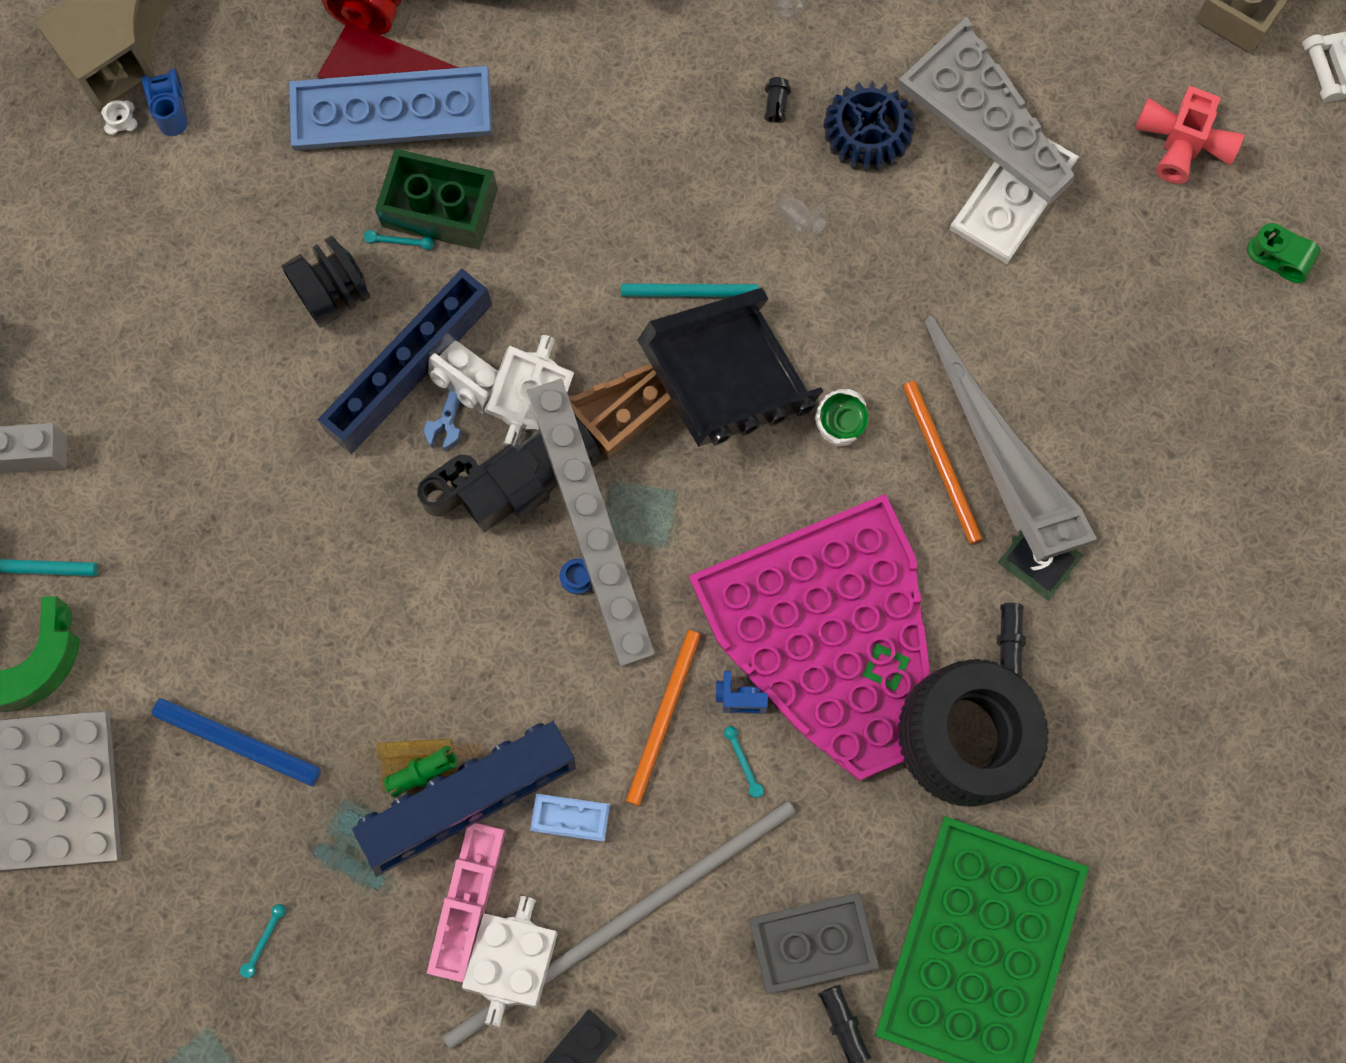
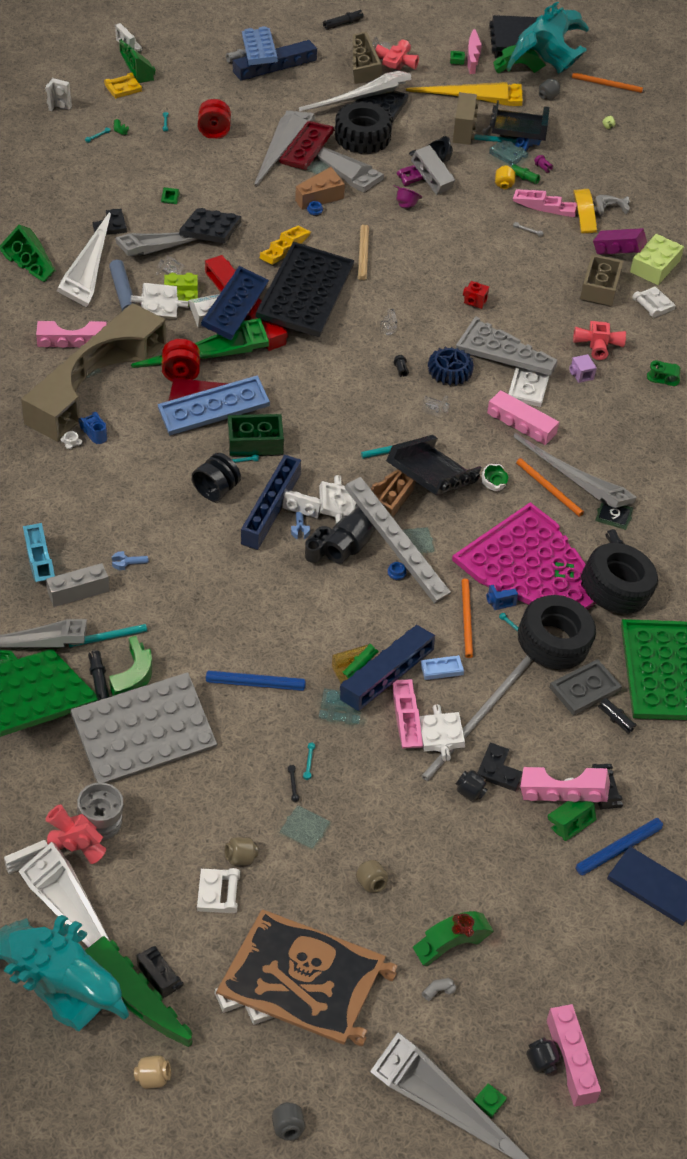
camera: 25 degrees left, 25 degrees down
(118, 413) = (124, 560): none -> medium blue bar
(225, 948) = (291, 769): none -> black hinge
(852, 810) = (551, 650): none -> black tyre
(955, 287) = (523, 417): none -> bright pink brick
(1124, 198) = (583, 368): none -> lavender brick

